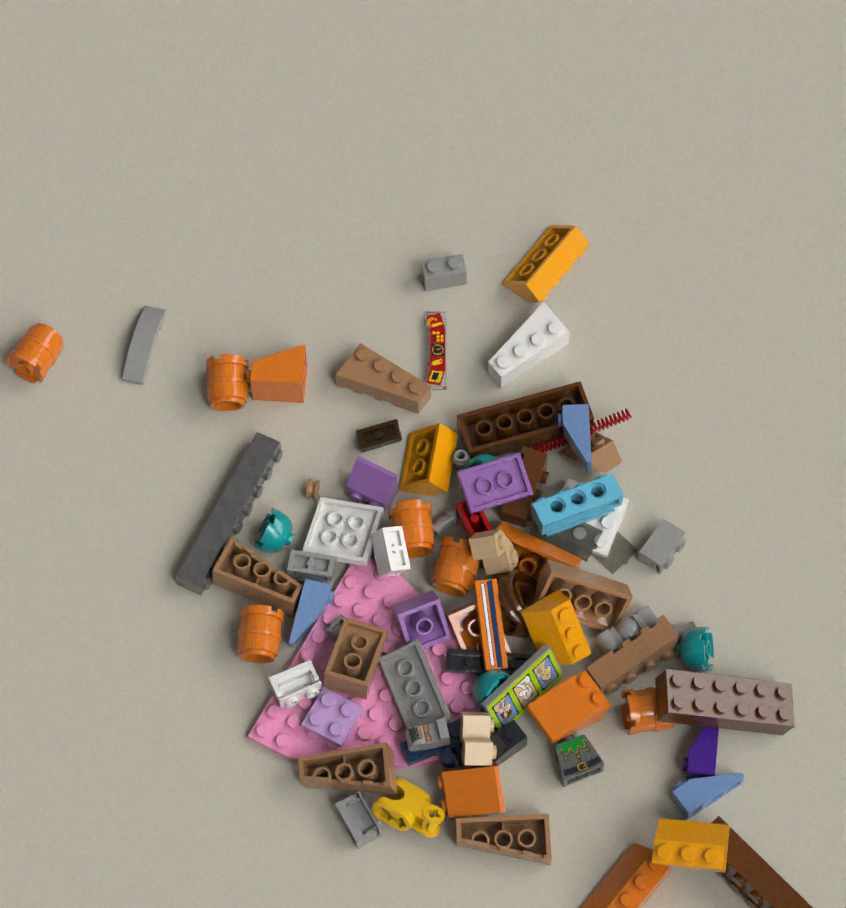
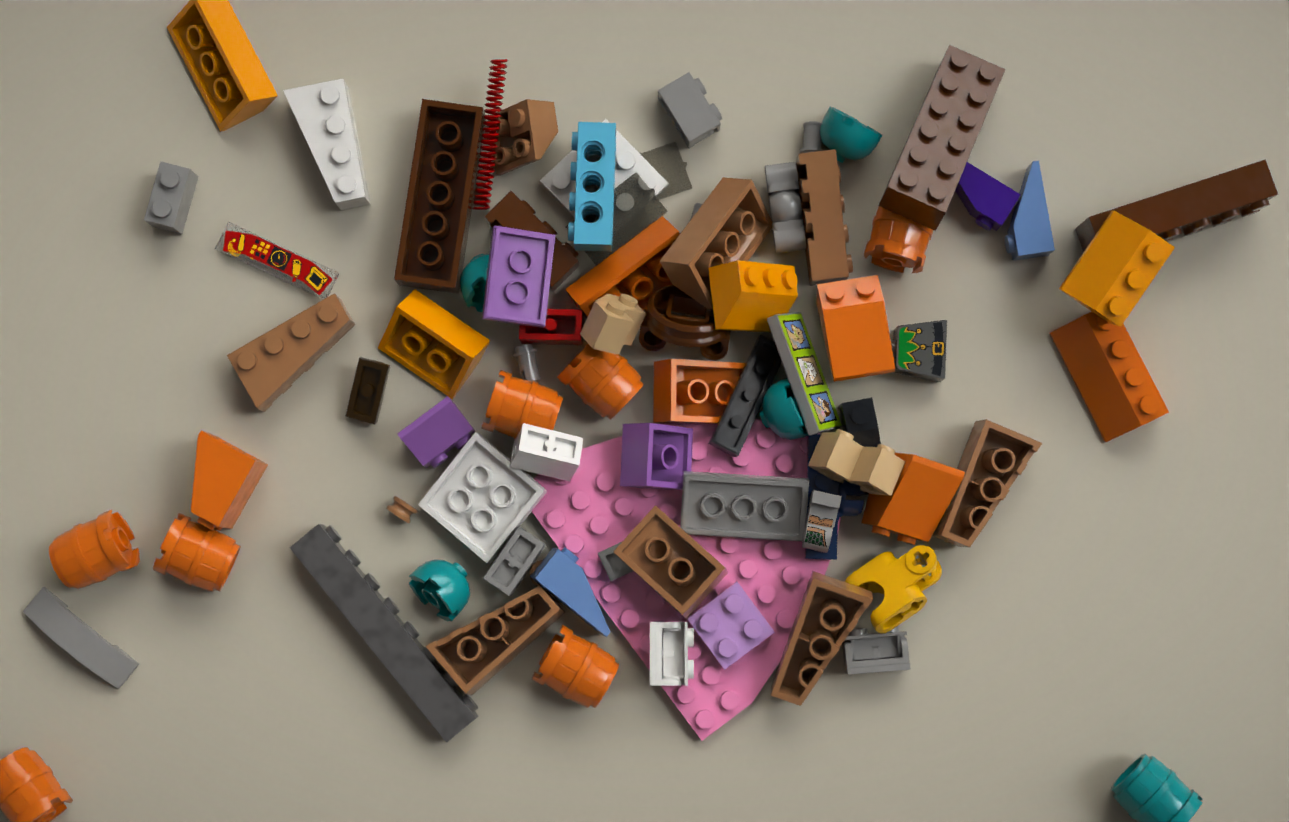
camera: 65 degrees left, 20 degrees up
(202, 325) = (94, 551): none -> orange piece
(459, 458) = (447, 302): light grey pin -> none
(490, 624) = (706, 373): orange tile -> none
(577, 431) = (498, 137): medium blue slope -> none

